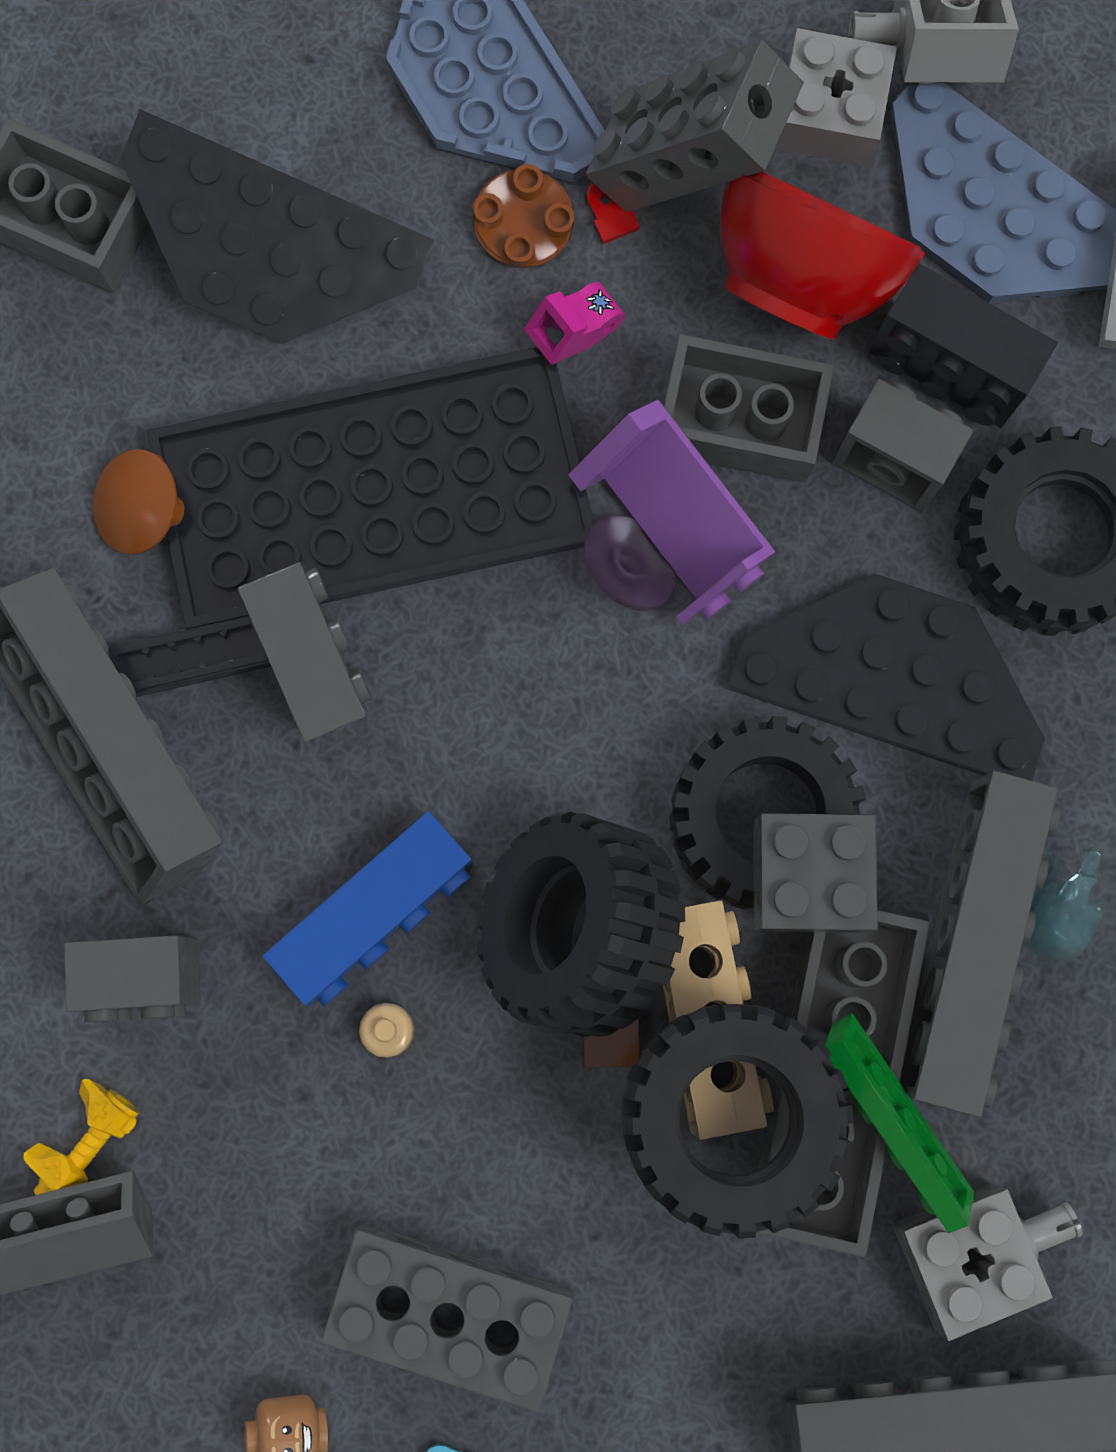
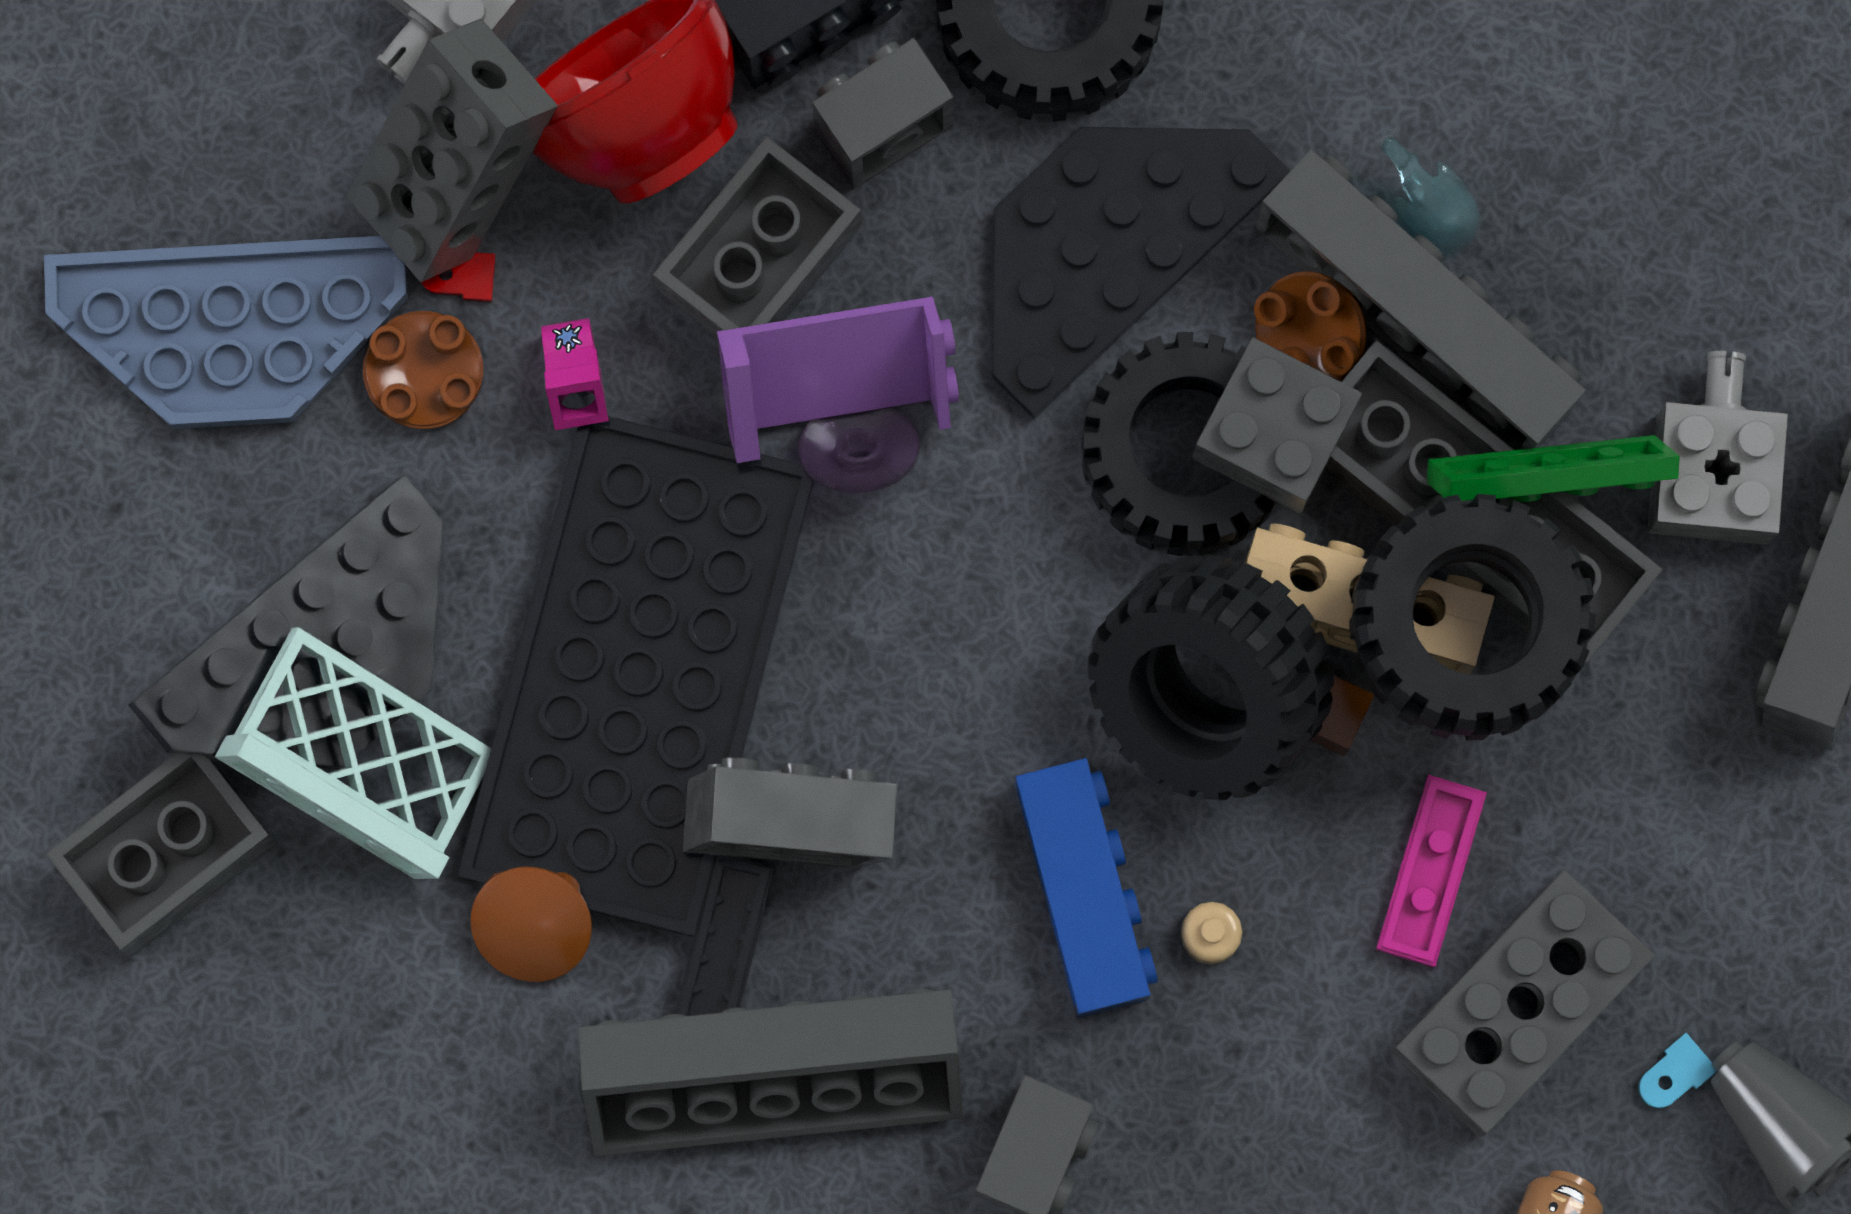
camera: 60 degrees left, 0 degrees up
(148, 304) = (330, 800): none -> light aqua fence
(524, 1183) = (1431, 871): none -> dark pink tile
(915, 865) = (1312, 322): none -> dark orange dish

